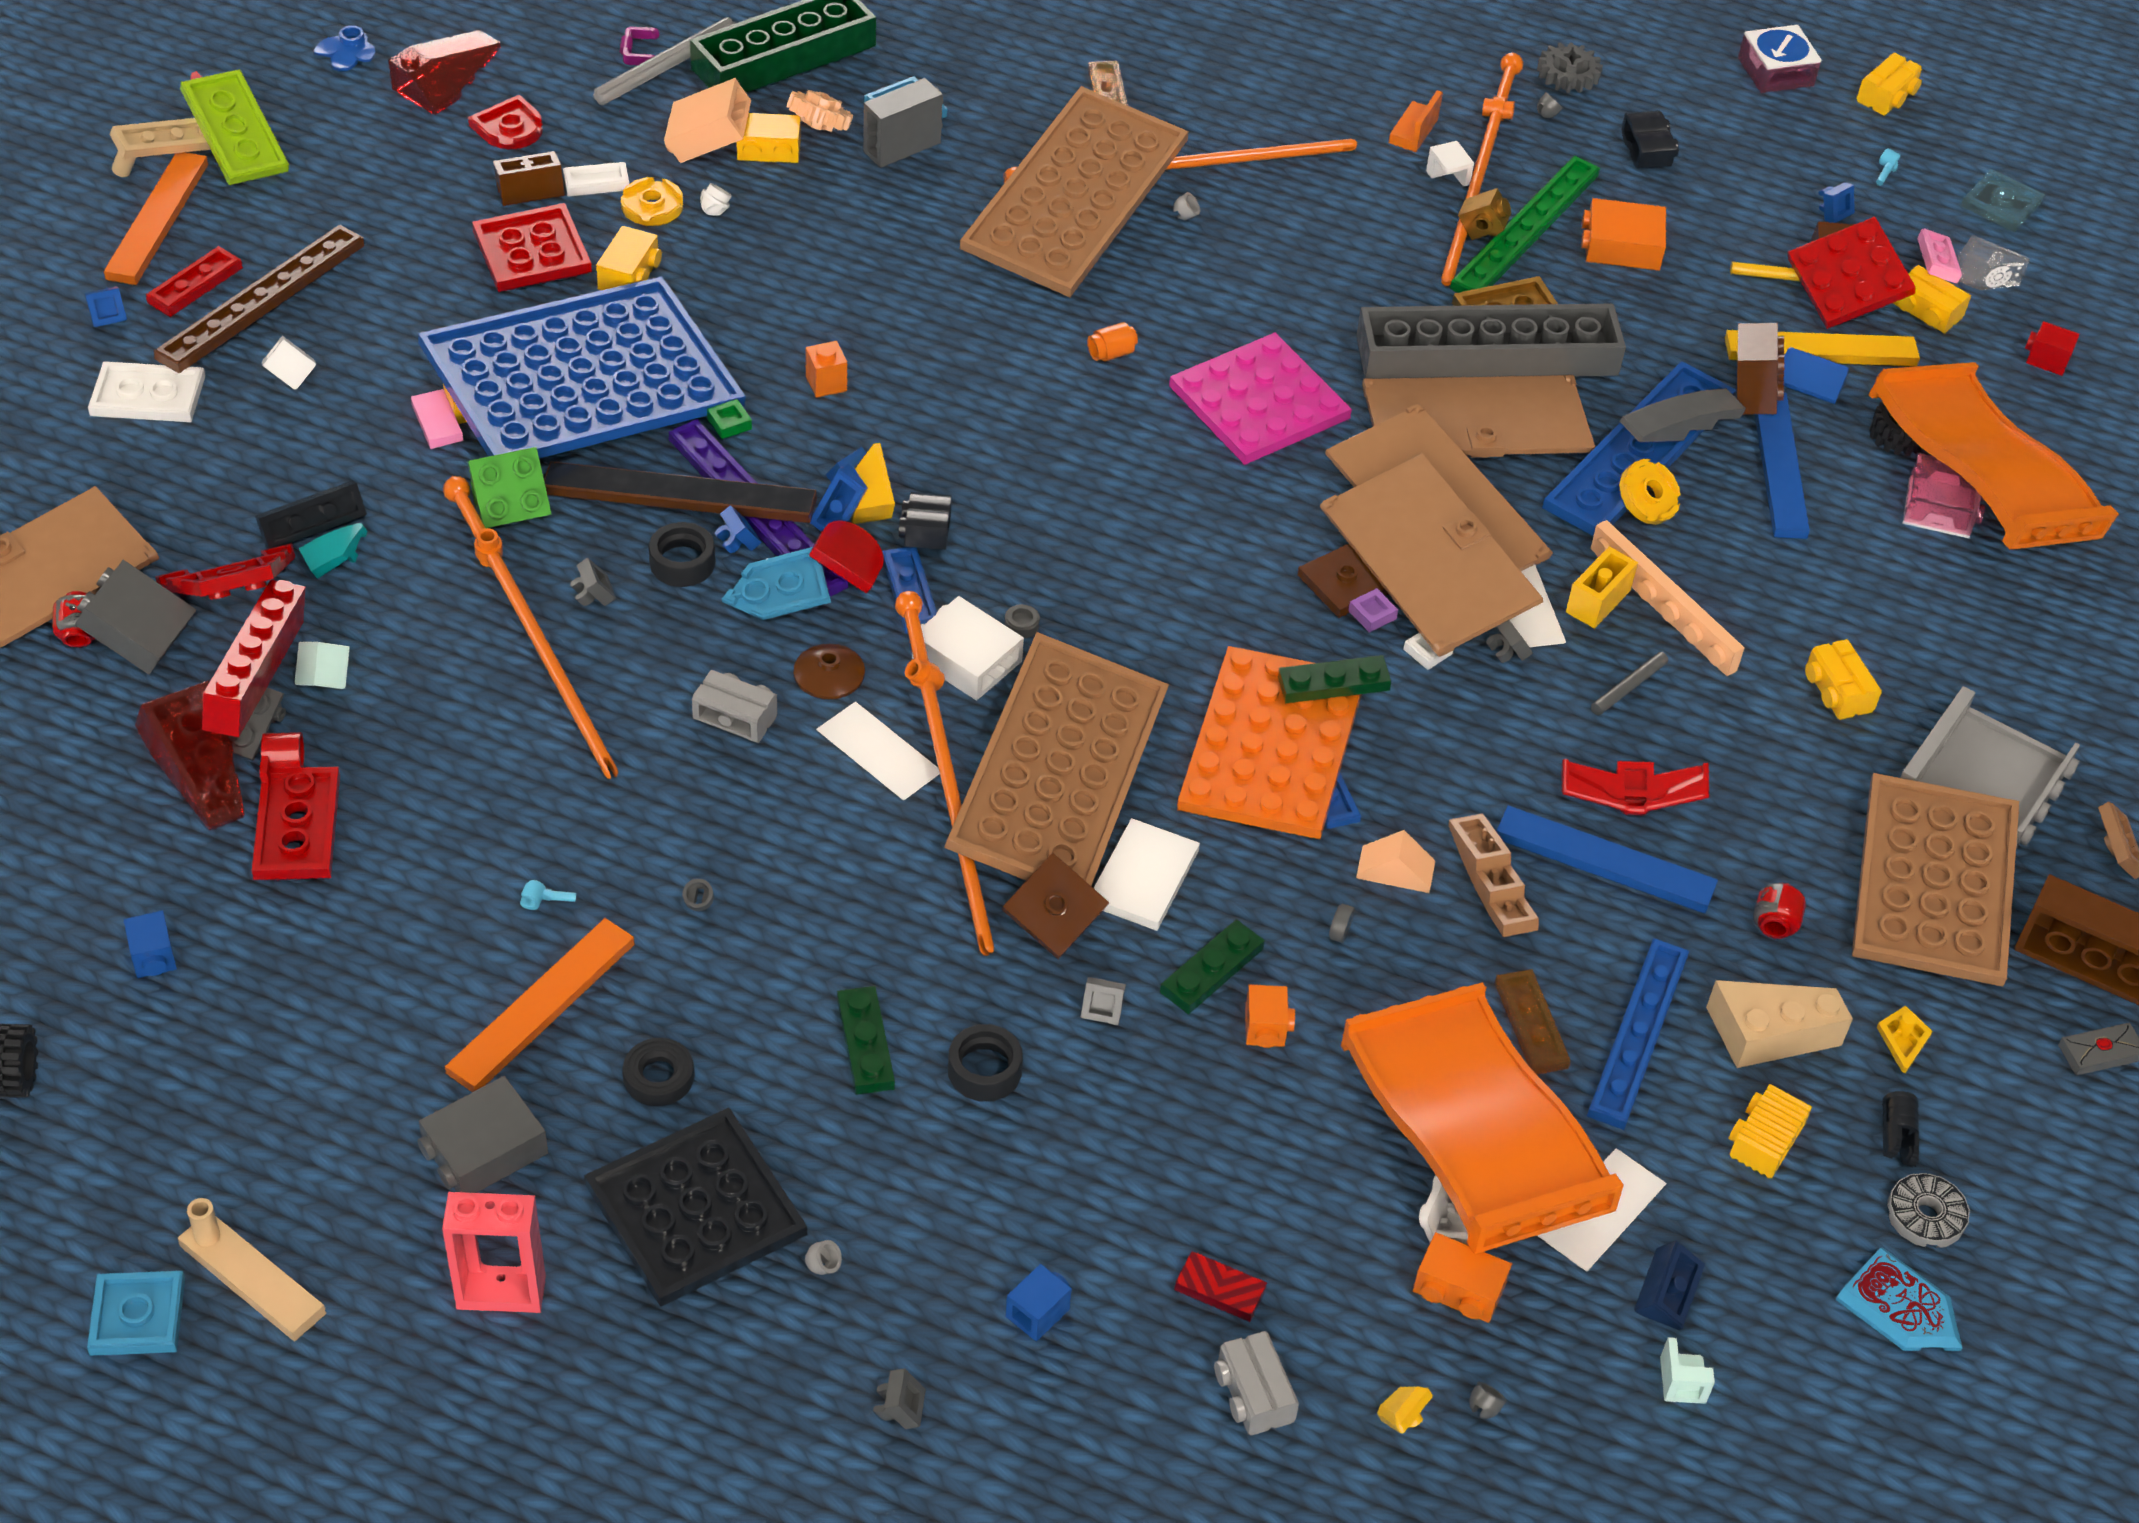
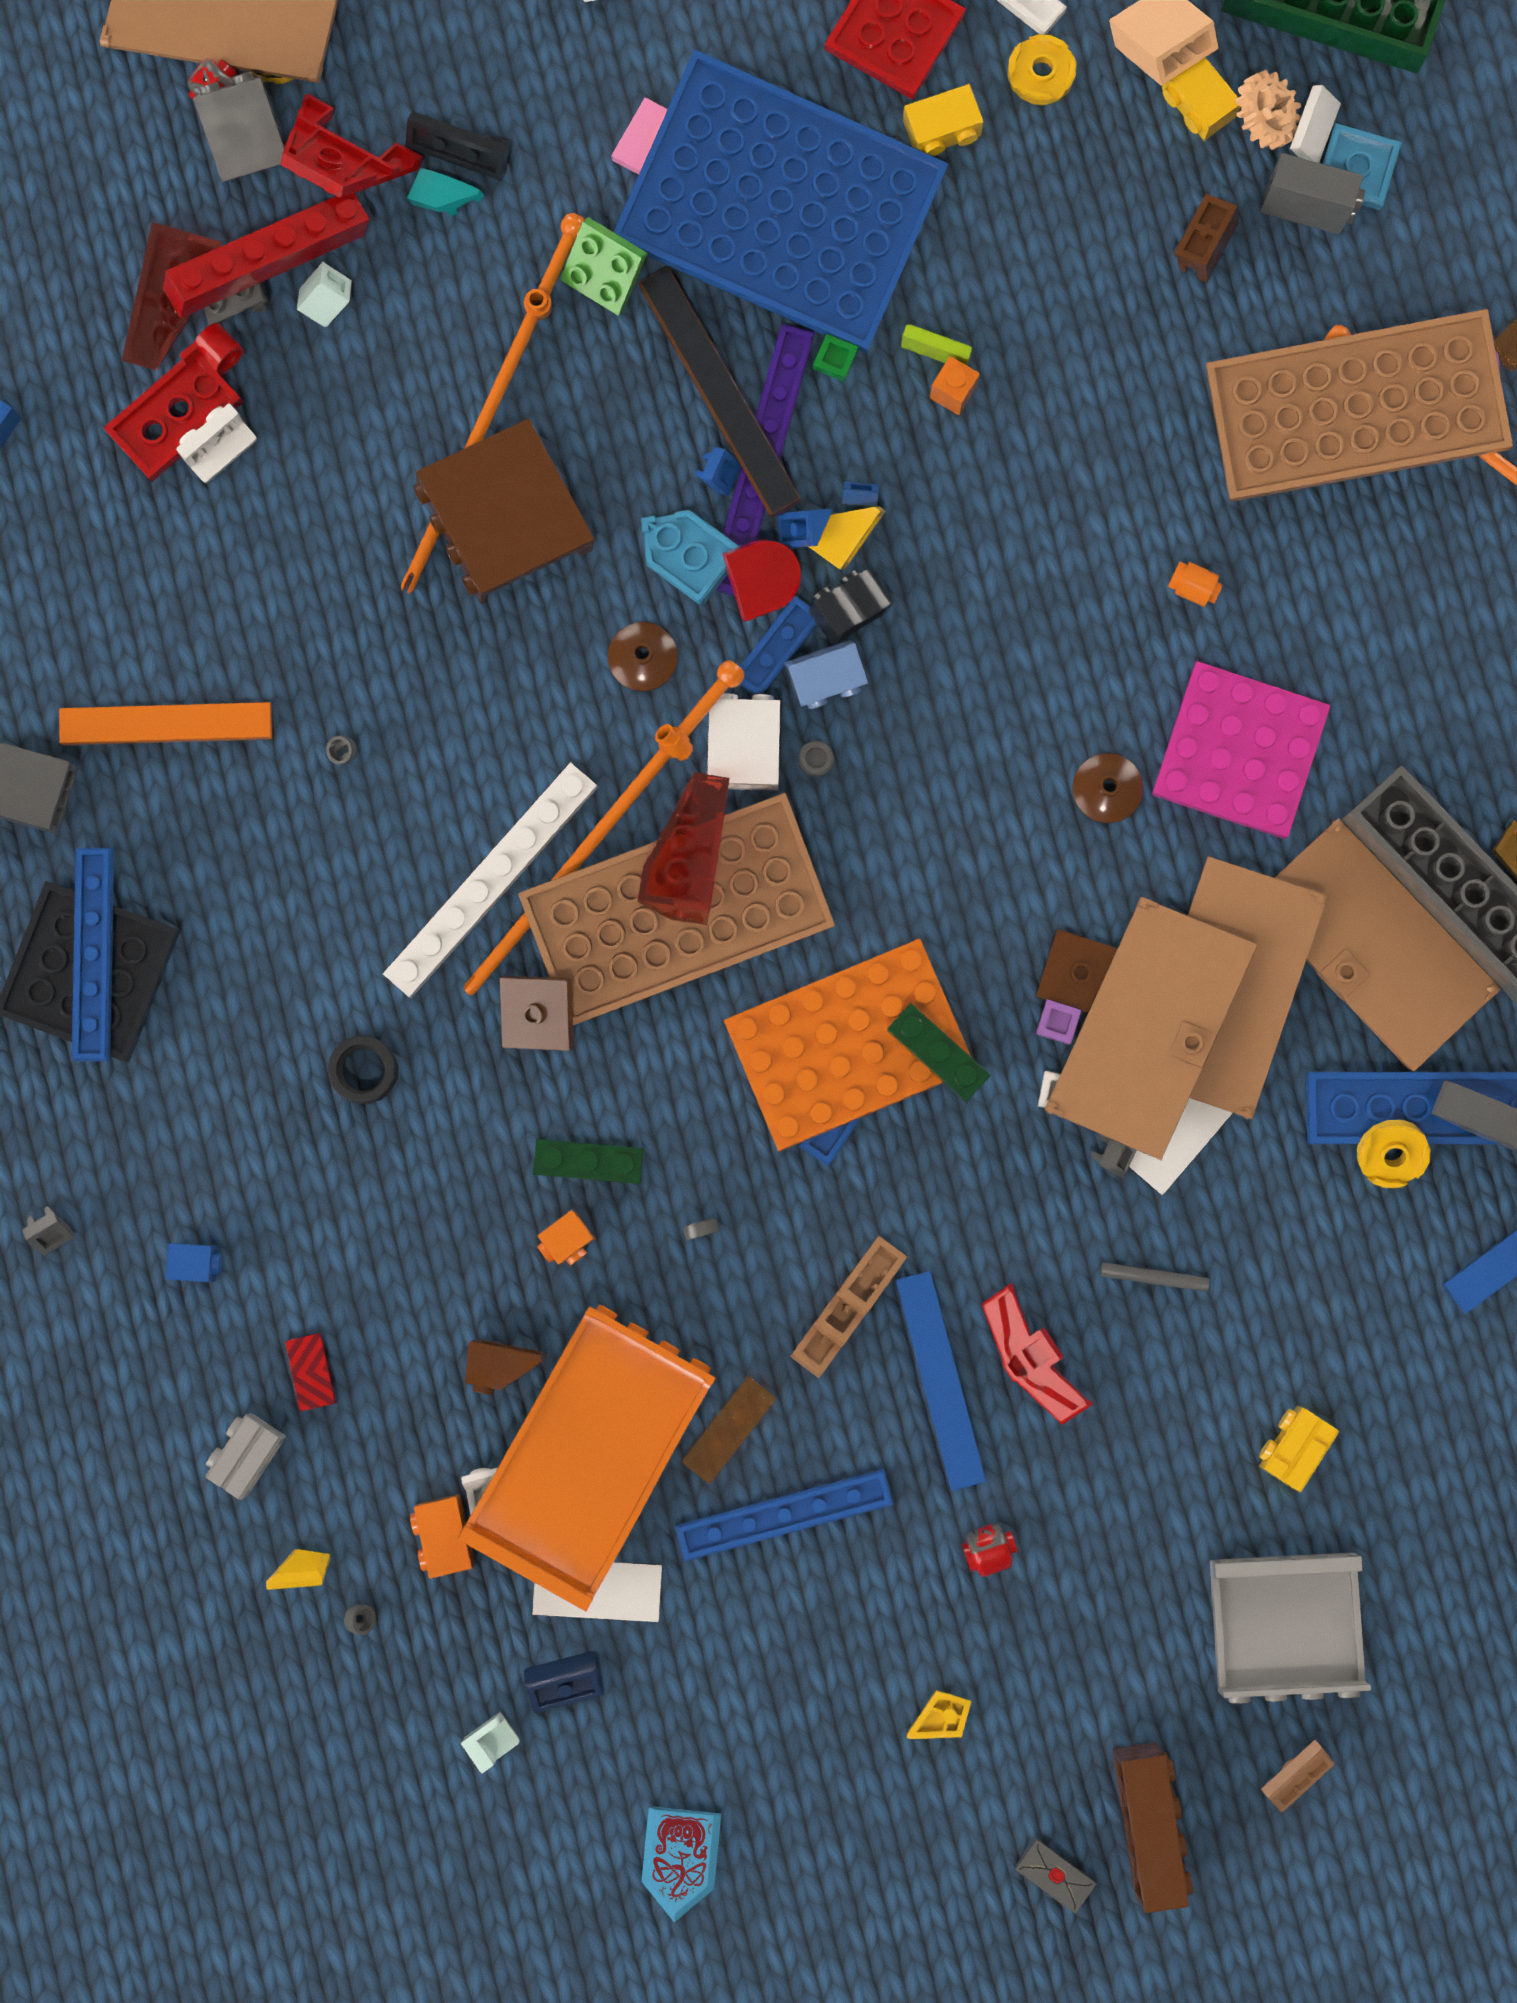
camera: 60 degrees right, 35 degrees up
(356, 805) = (216, 443): none -> white bracket
(535, 892) = (250, 634): medium azure hand -> none
(592, 584) = (571, 413): dark grey tile -> none
(623, 663) = (502, 509): none -> reddish brown panel
(664, 1092) = (159, 837): black tyre -> none
(682, 535) = (651, 424): black tyre -> none
(689, 1181) = (92, 955): none -> blue tile
(714, 200) = (1083, 120): white plate -> none
(735, 705) = (538, 622): light grey brick -> none
(782, 363) = (934, 345): none -> lime tile
(823, 1252) = (107, 1093): light grey hinge -> none
(848, 97) = (1315, 124): none -> white tile
(865, 1040) = (319, 969): dark green plate -> none
(871, 189) = (1207, 236): none -> reddish brown hinge
(879, 750) = (599, 750): white sticker -> none
(911, 879) = (490, 880): none -> white plate
(964, 564) = (826, 674): none -> medium blue brick
(1034, 705) = (683, 864): none -> clear red wedge
(1103, 1001) = (483, 1110): tile -> none
(1145, 873) = (634, 1047): white tile -> none
(1186, 206) = (1430, 515): light grey hinge -> none
(1215, 482) = (1095, 800): none -> reddish brown dish
(1337, 1123) = (498, 1365): none -> reddish brown slope
(1397, 862) = (799, 1227): light nougat slope -> none
(1601, 587) = (1233, 1190): yellow brick -> none
(1673, 603) = (1277, 1230): light nougat plate -> none
(1769, 1130) = (758, 1671): yellow brick -> none
(1776, 1020) = (868, 1617): tan wedge -> none
(1901, 1127) = (845, 1765): black hinge -> none
(1933, 1192) = (782, 1851): tile -> none
(1937, 879) = (1126, 1653): medium nougat plate -> none

